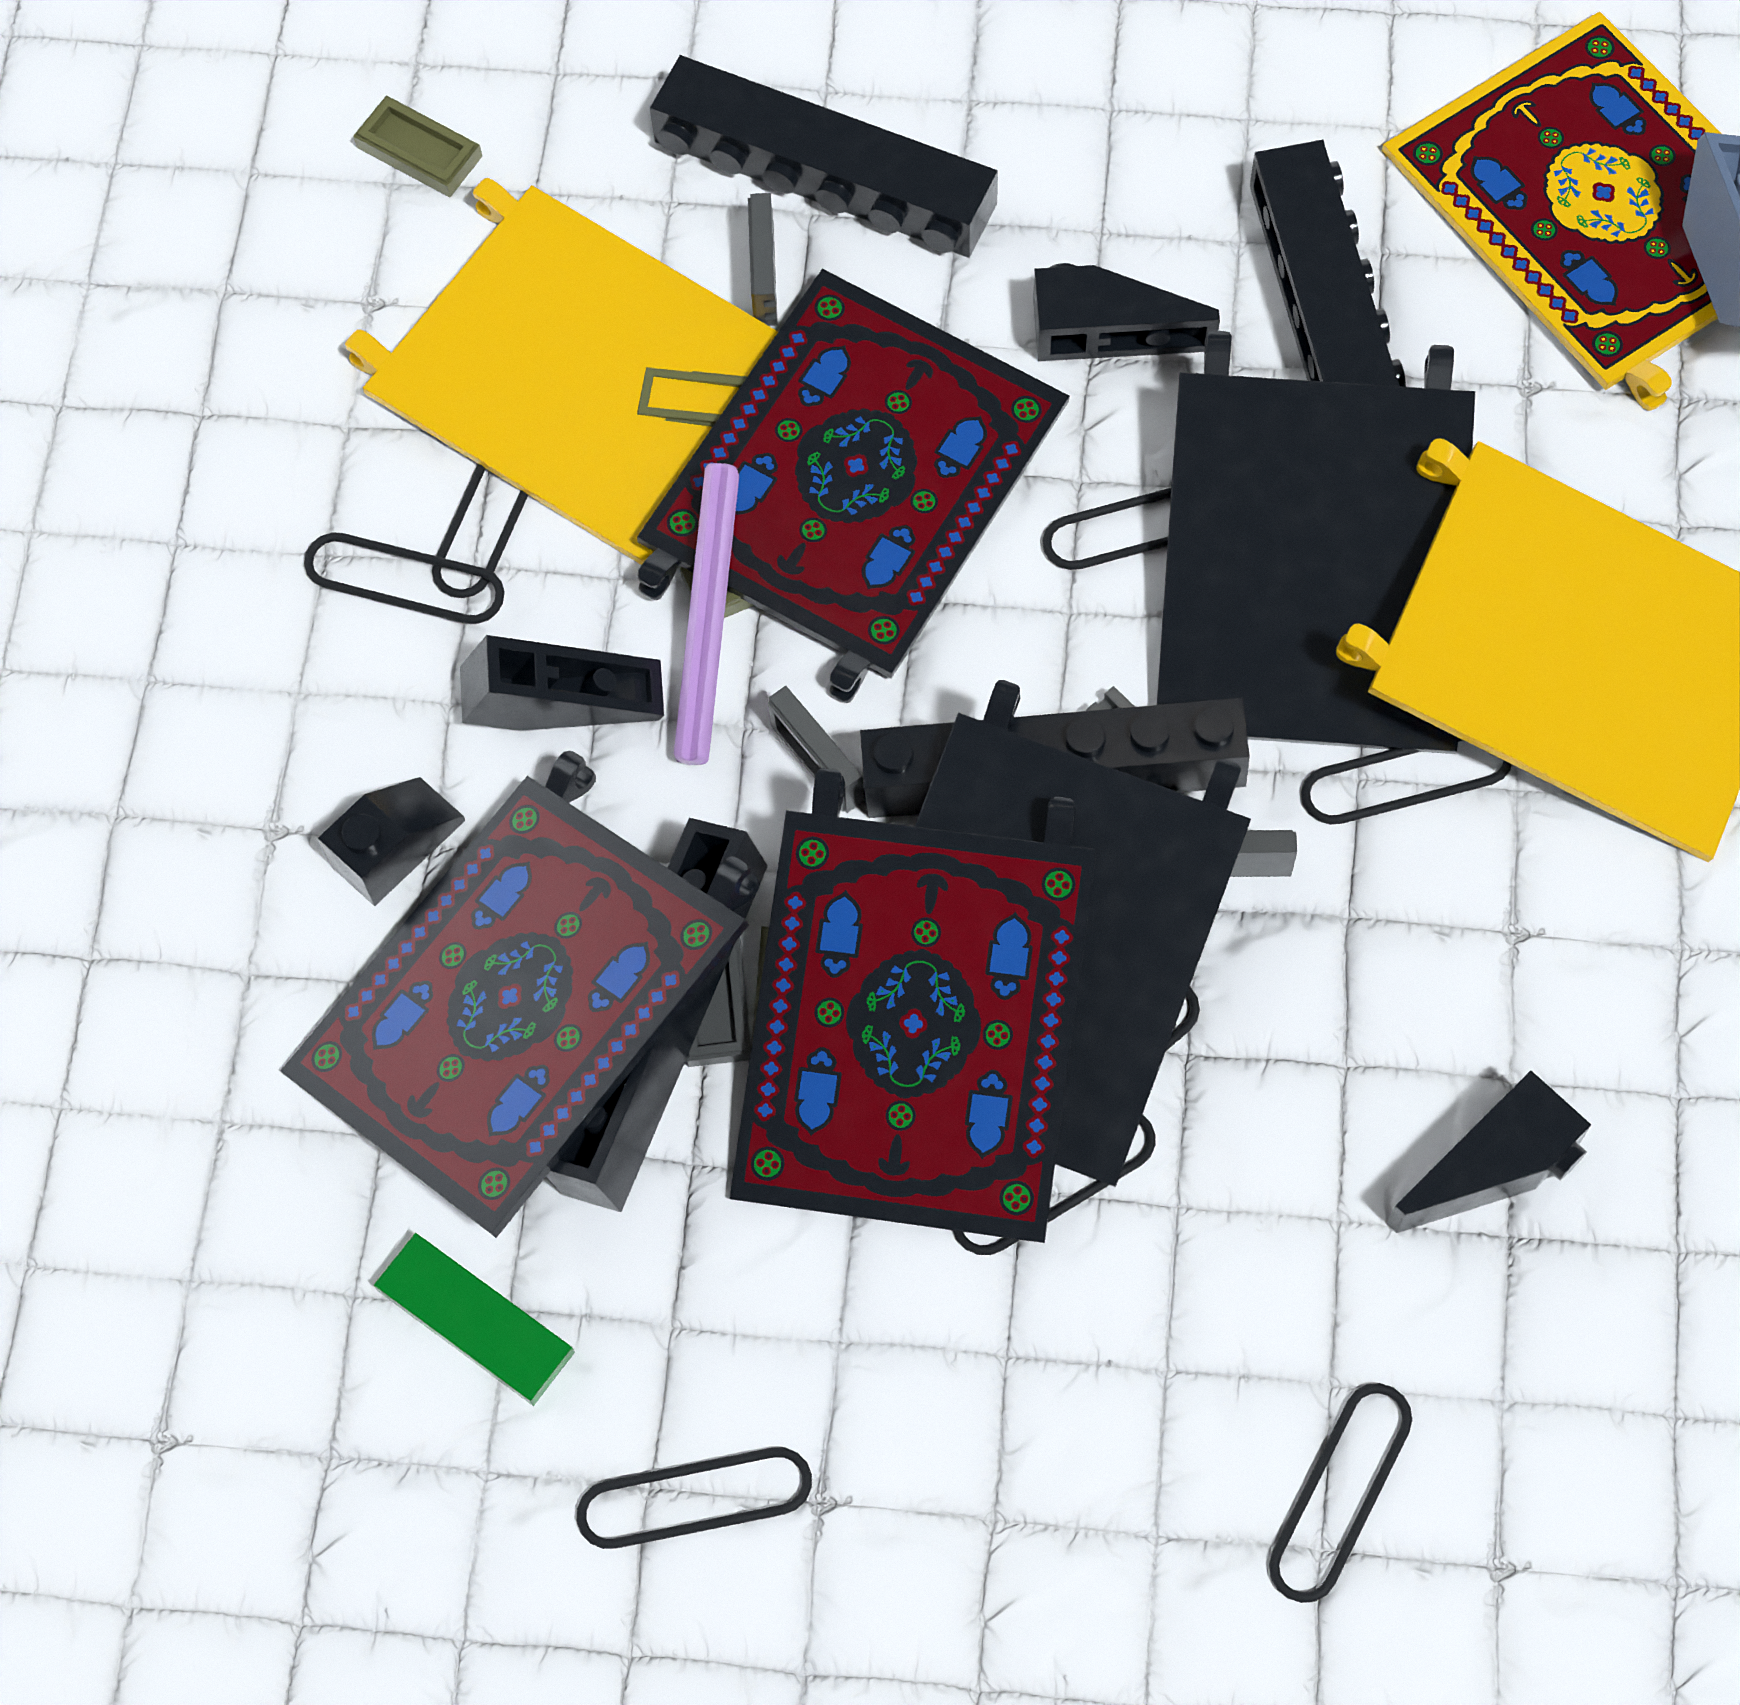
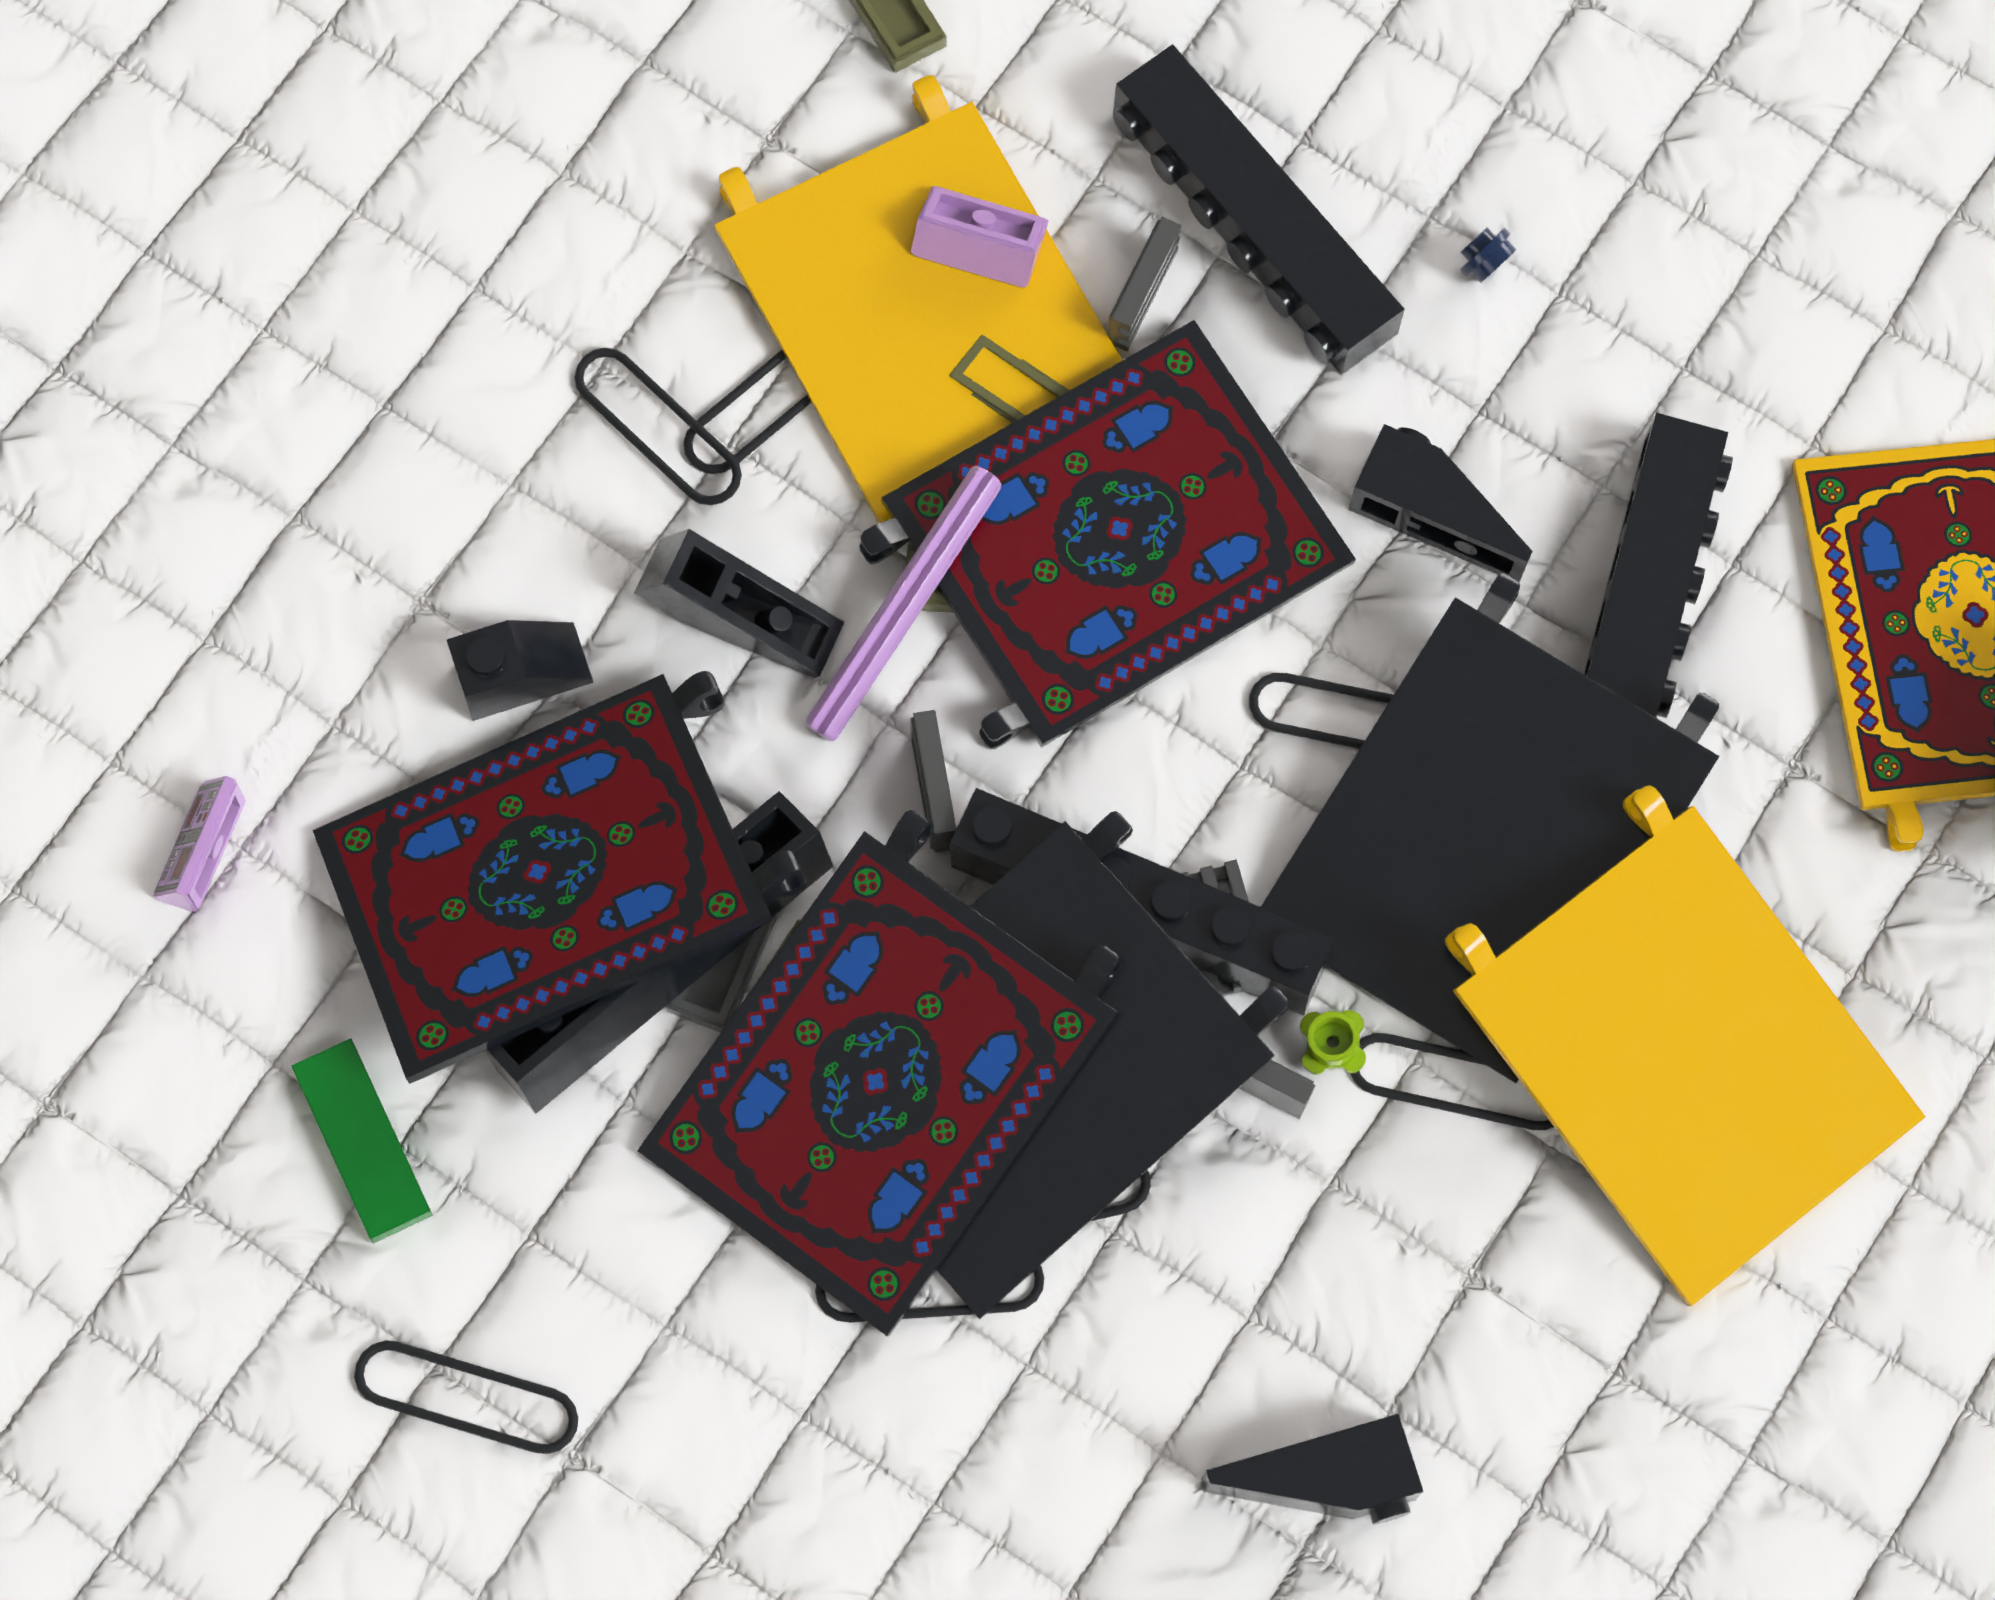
camera: 20 degrees right, 5 degrees up
(183, 1133) = (200, 844): none -> lavender slope
(600, 289) = (978, 236): none -> lavender slope
(1036, 101) = (1486, 253): none -> dark blue plate
(1286, 777) = (1345, 1028): none -> lime plate

